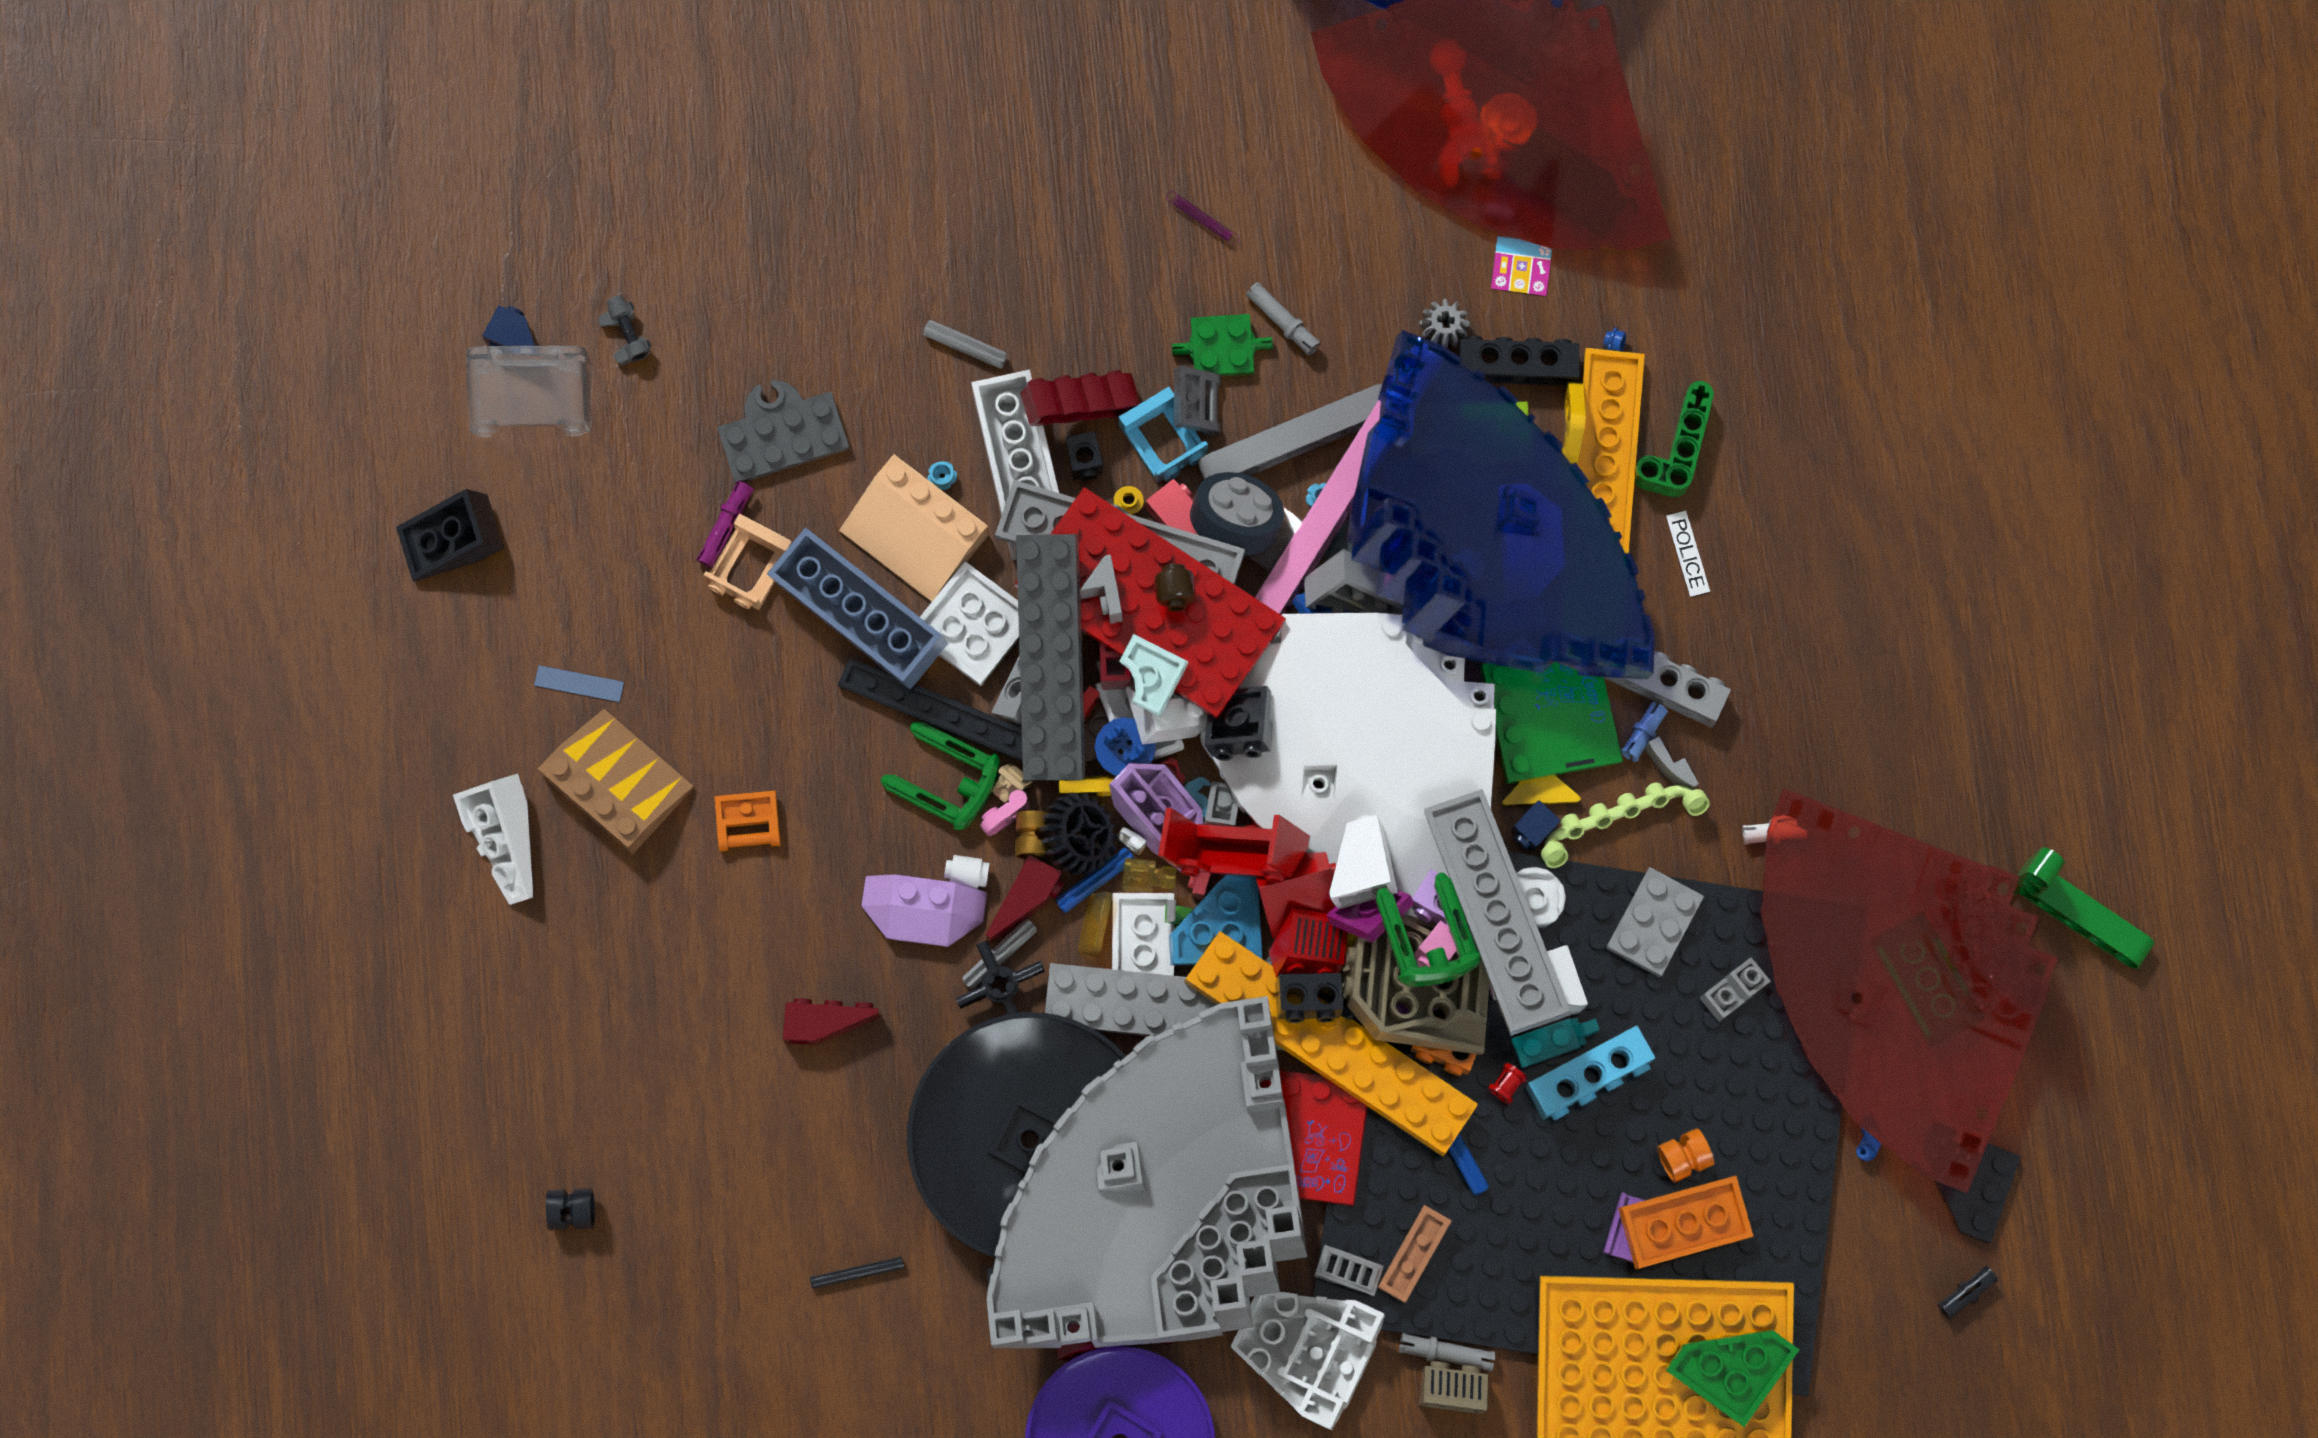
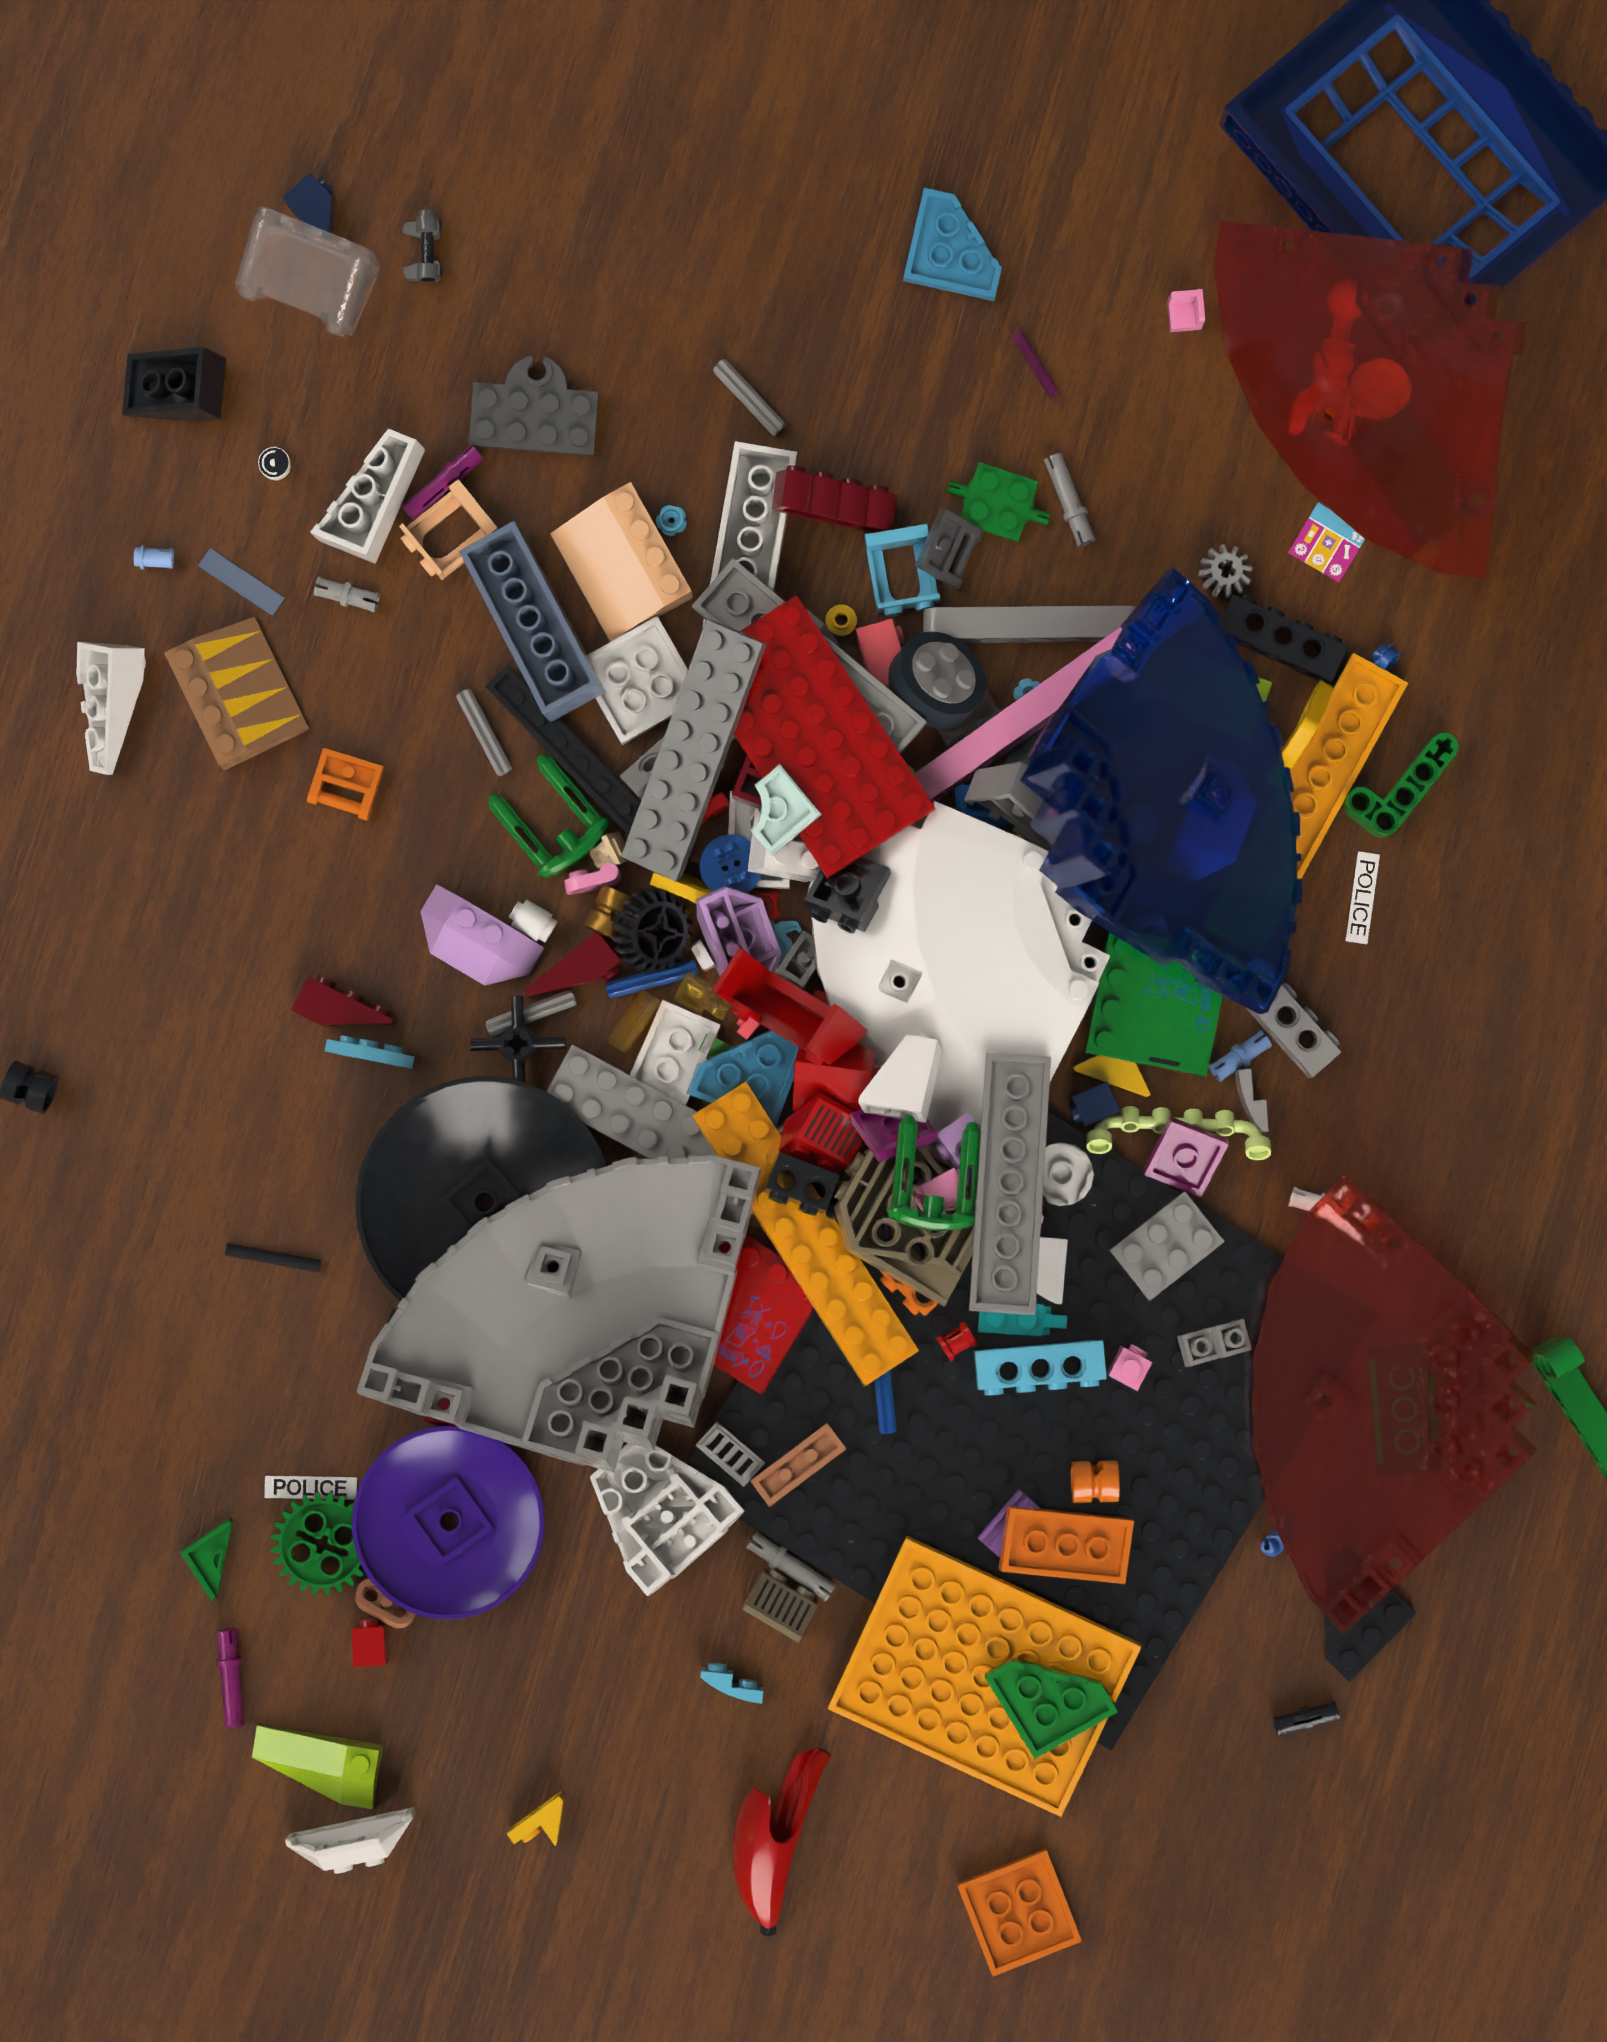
camera: 25 degrees right, 10 degrees up
(492, 693) = (153, 557): none -> light blue pin
(567, 568) = (274, 463): none -> black tile
(669, 562) = (372, 498): none -> white wedge
(679, 655) = (346, 594): none -> light grey pin
(853, 725) = (484, 732): none -> light grey axle
(869, 1045) = (369, 1051): none -> medium azure plate
(1082, 444) = (816, 545): black brick -> none
(1087, 152) = (950, 250): none -> dark azure plate
(1103, 582) = (772, 700): light grey slope -> none
(1175, 587) = (838, 735): dark brown head -> none
(1313, 121) = (1186, 310): none -> bright pink panel
(1636, 837) = (1185, 1156): none -> plate
(1670, 1040) = (1129, 1366): none -> bright pink brick

